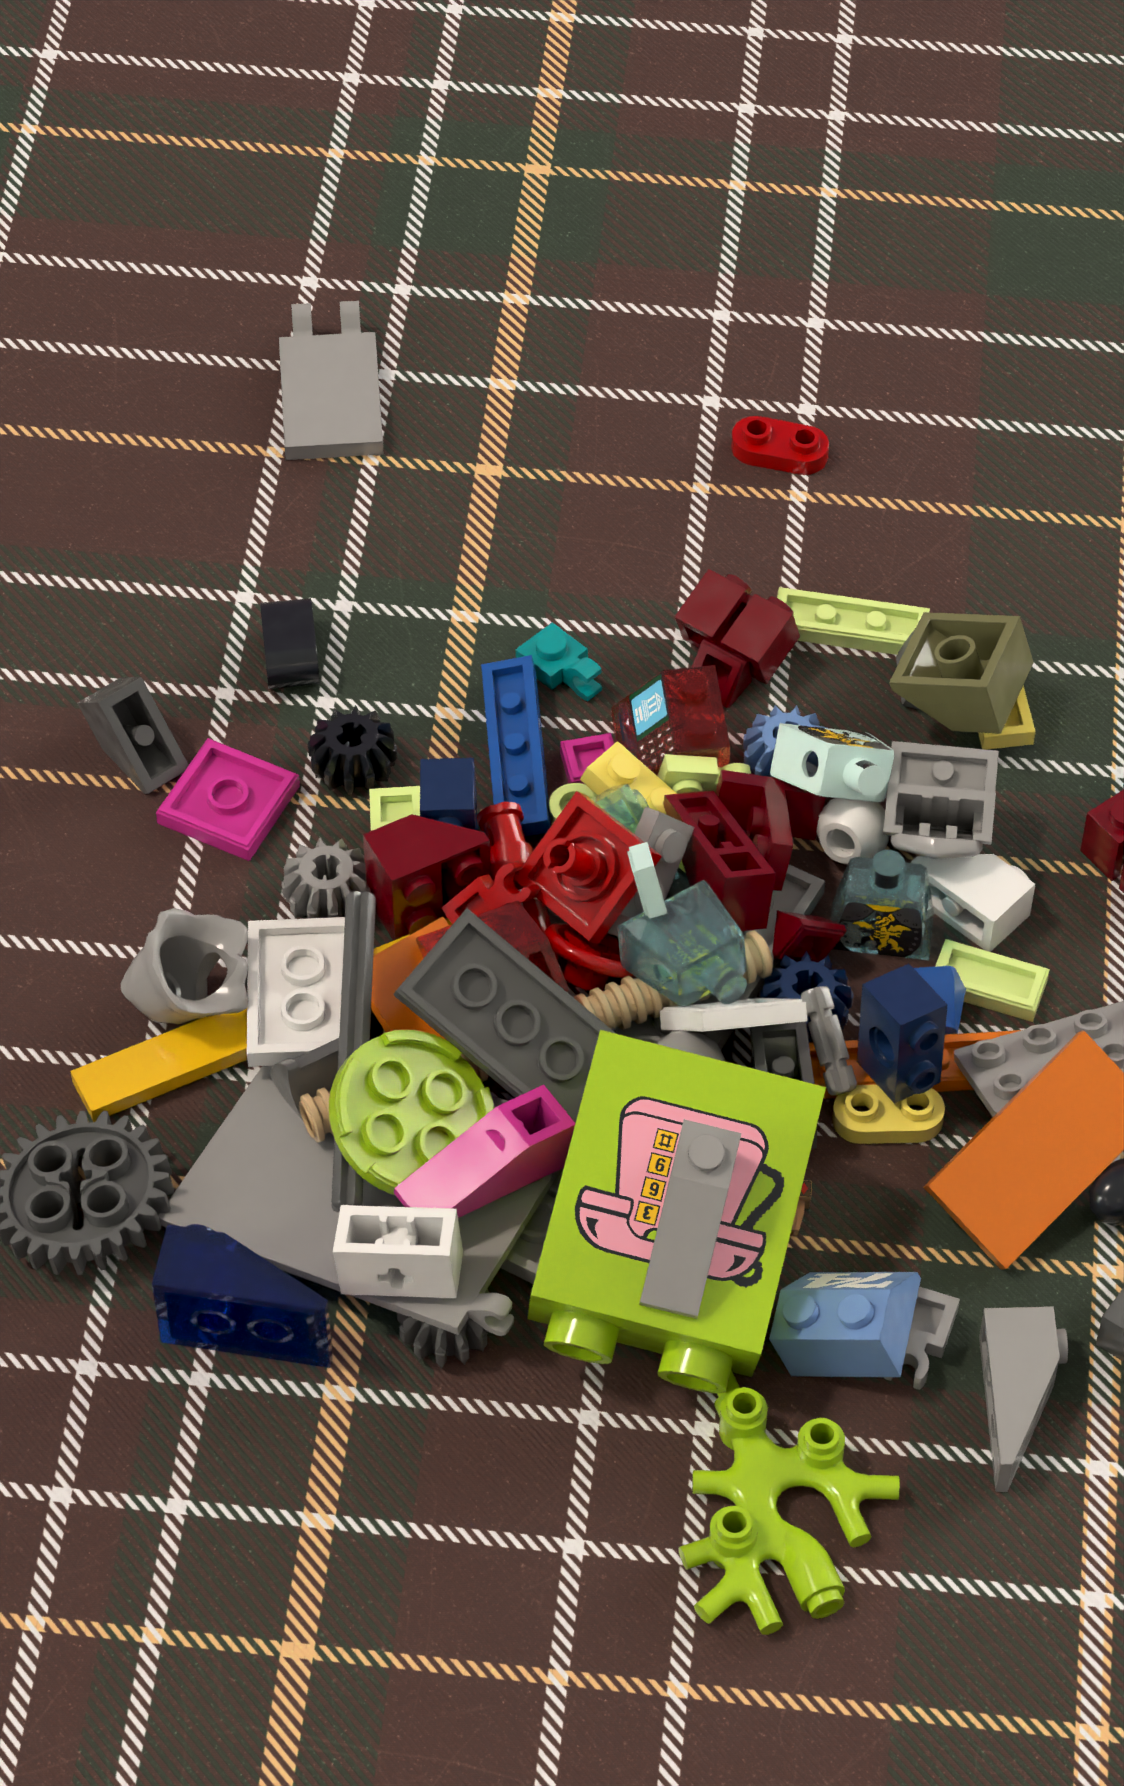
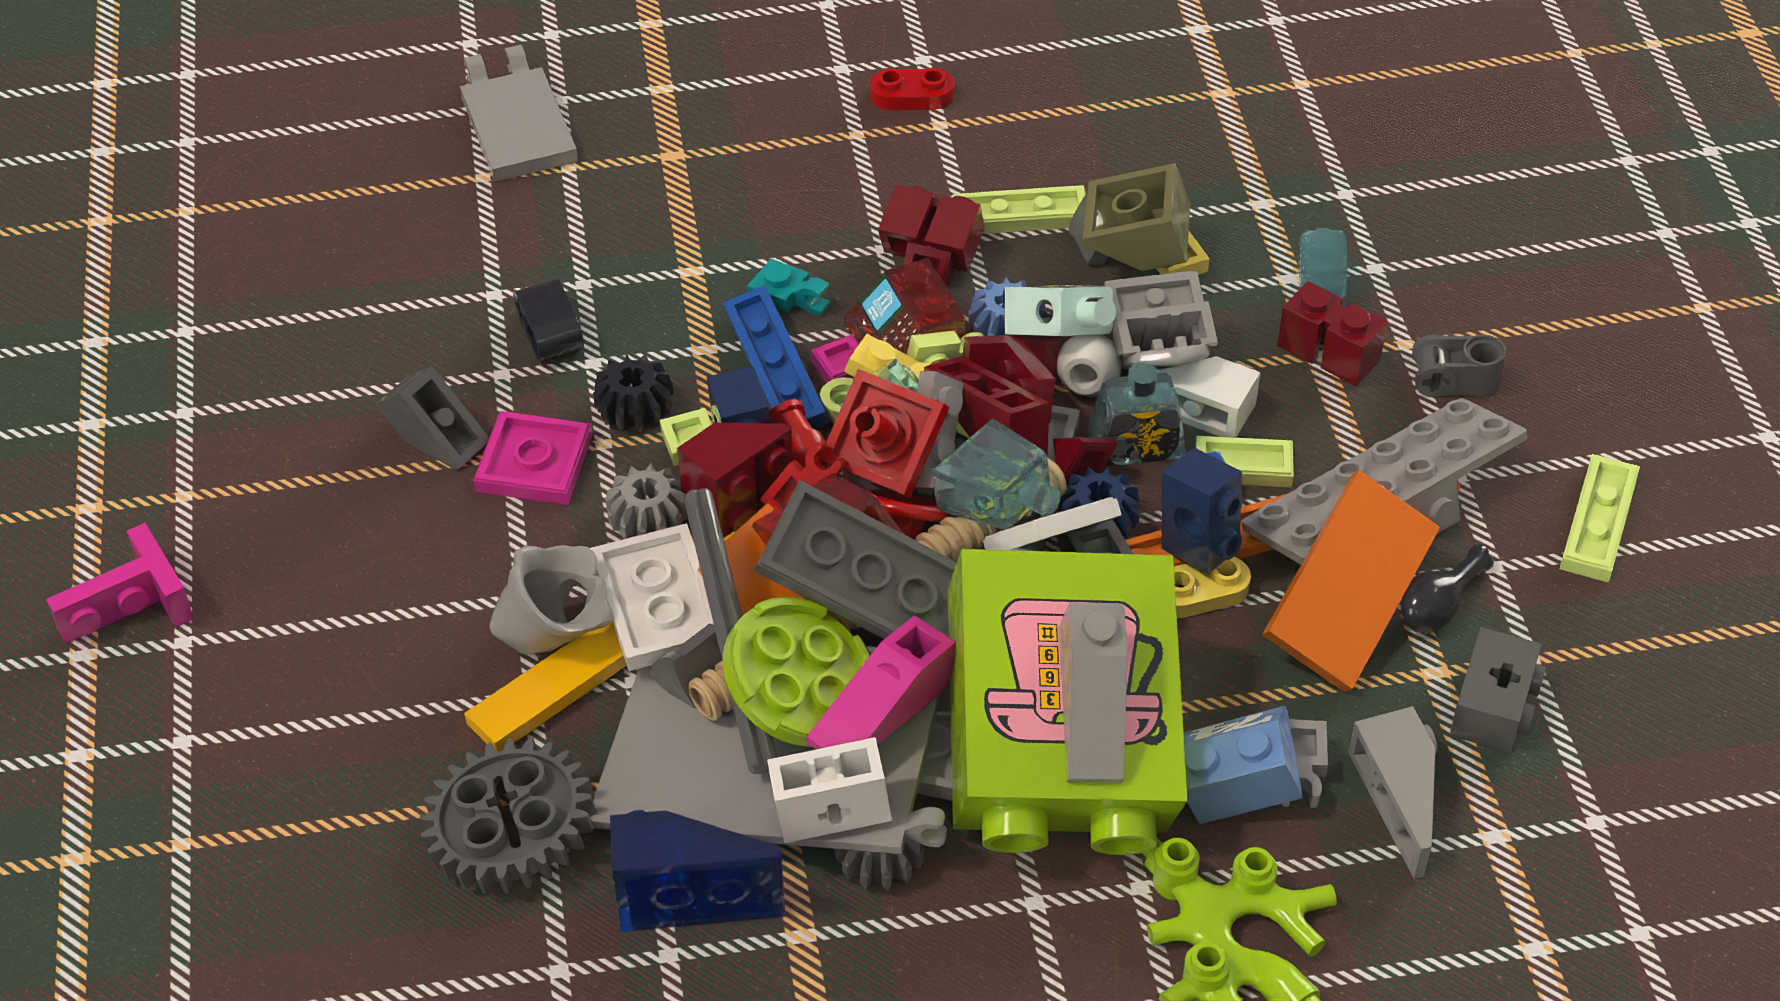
camera: 15 degrees left, 5 degrees down
(646, 880) = (947, 426): light aqua tile -> none
(829, 1041) = (1133, 526): light grey axle -> none

